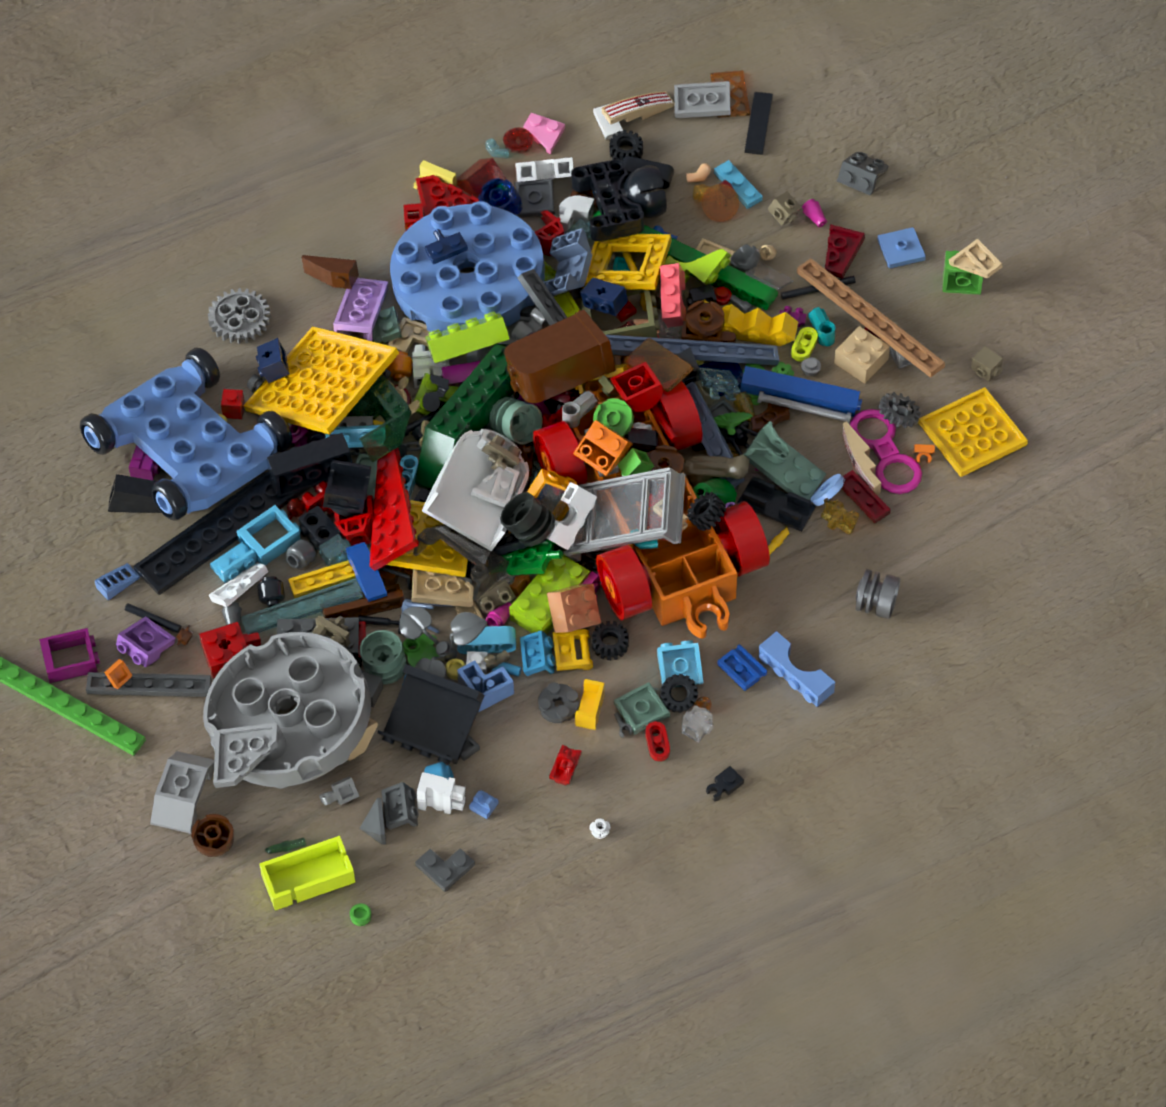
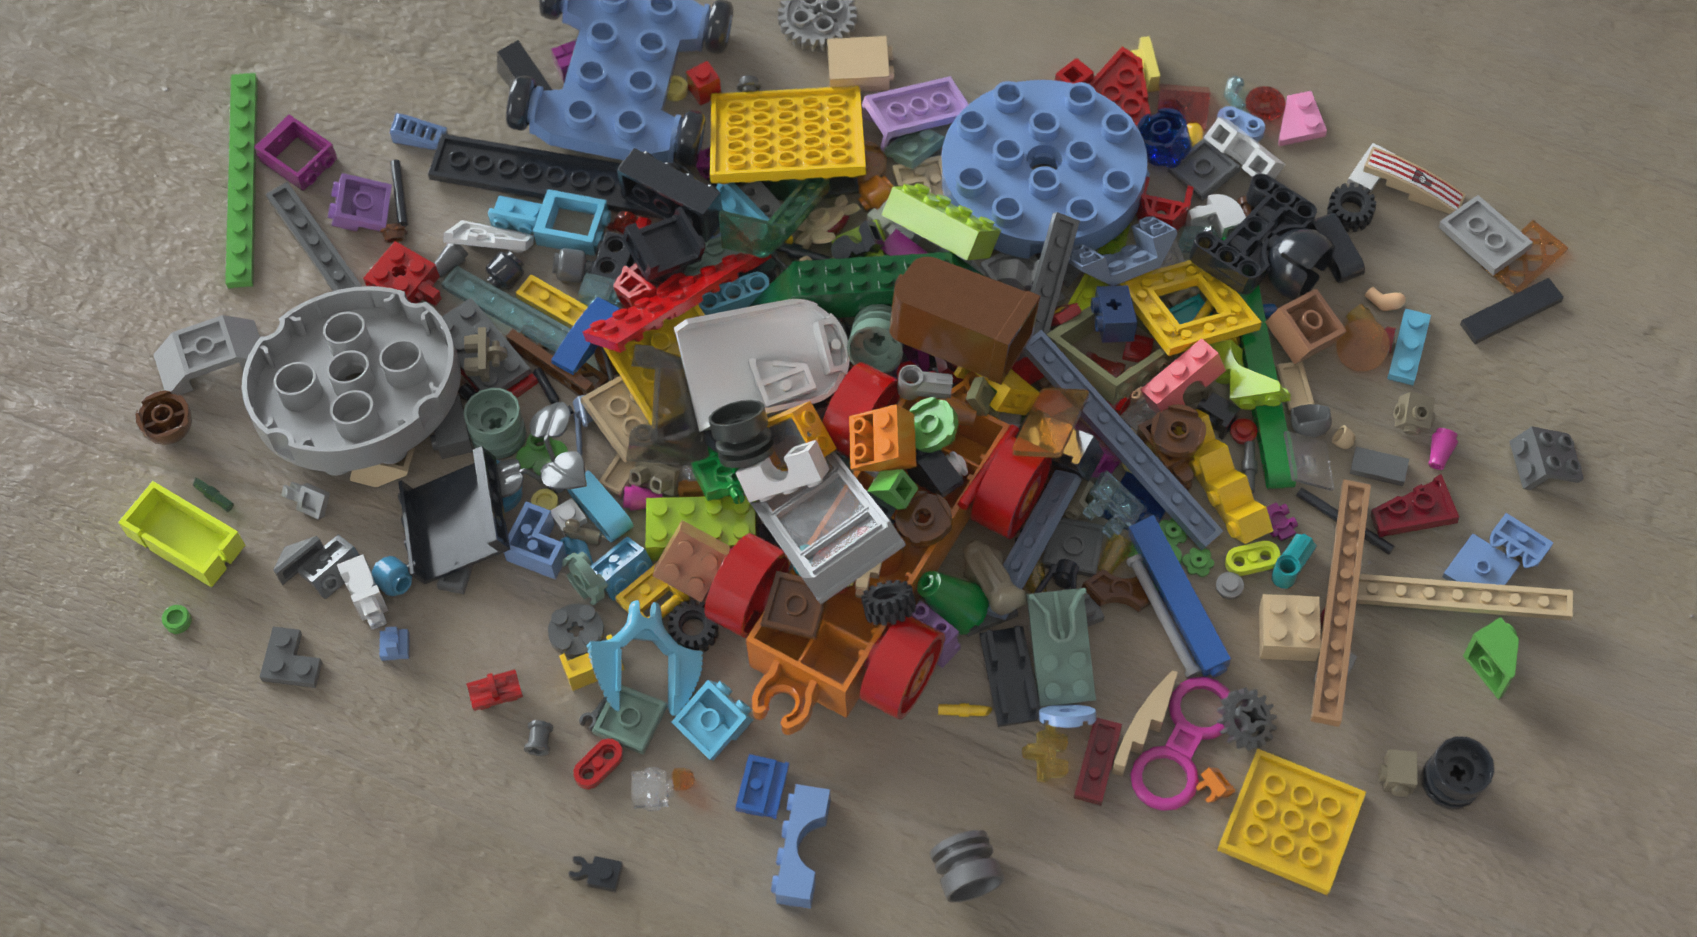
camera: 55 degrees right, 5 degrees up
(118, 674) = (295, 206): orange tile -> none
(241, 750) = (255, 369): light grey plate -> none
(272, 360) = (781, 79): dark blue brick -> none
(296, 316) = (861, 63): none -> tan brick
(332, 271) = (940, 60): reddish brown slope -> none
(445, 246) = (1037, 123): dark blue plate -> none
(501, 456) = (820, 365): dark tan hips -> none
(522, 156) = (1244, 121): none -> light blue plate
(541, 668) = (584, 578): none -> sand green plate
(600, 833) = (447, 787): white plate -> none
(607, 688) = (683, 663): none -> medium azure piece
(614, 761) = (538, 738): none -> dark grey bush
(638, 387) = (990, 420): red brick -> none
(665, 560) = (793, 607): none -> reddish brown tile
(679, 680) = (657, 738): black tyre -> none
(688, 218) = (1305, 326): none -> nougat brick
(731, 420) = (1076, 550): bright green hand -> none
(799, 249) = (1379, 466): none -> dark grey tile
(900, 217) = (1520, 541): none -> medium blue plate
(915, 261) = (1465, 597): none -> tan plate
(976, 260) = (1514, 658): tan wing -> none
(1011, 336) = (1463, 760): none -> black wheel

